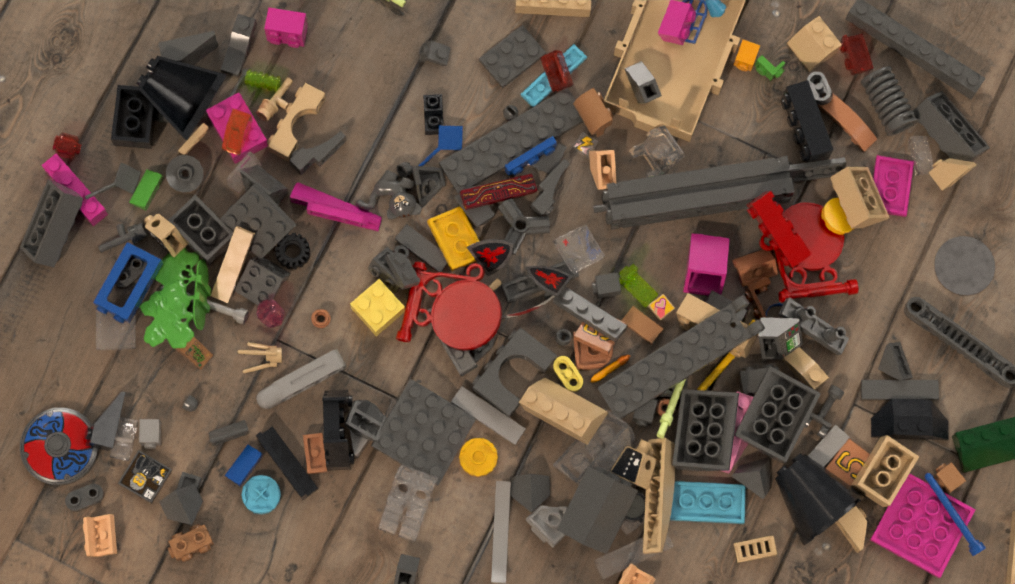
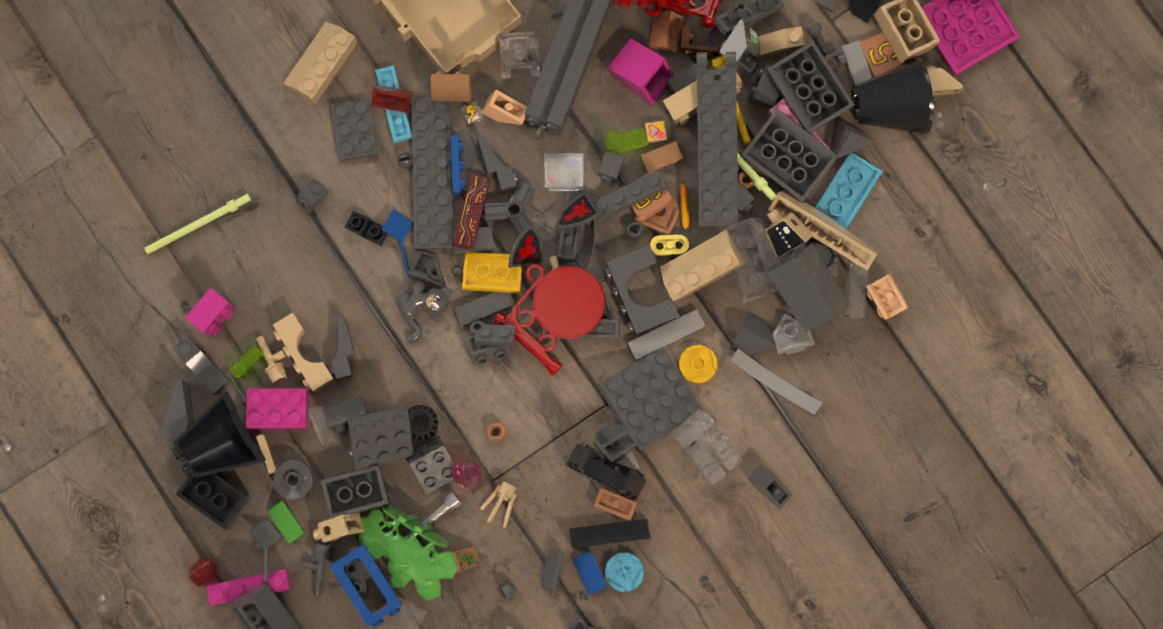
camera: 60 degrees left, 5 degrees up
(232, 264) = (404, 482): tan tile -> none
(236, 131) = (285, 411): clear orange slope -> none
(301, 380) = (542, 480): light grey piece -> none
(332, 208) = (401, 365): dark pink wedge -> none
(377, 307) = (516, 376): light yellow brick -> none
(404, 169) = (403, 286): dark grey hinge -> none
(642, 83) = (449, 30): dark grey slope -> none
(772, 547) = (917, 160): tan slope -> none

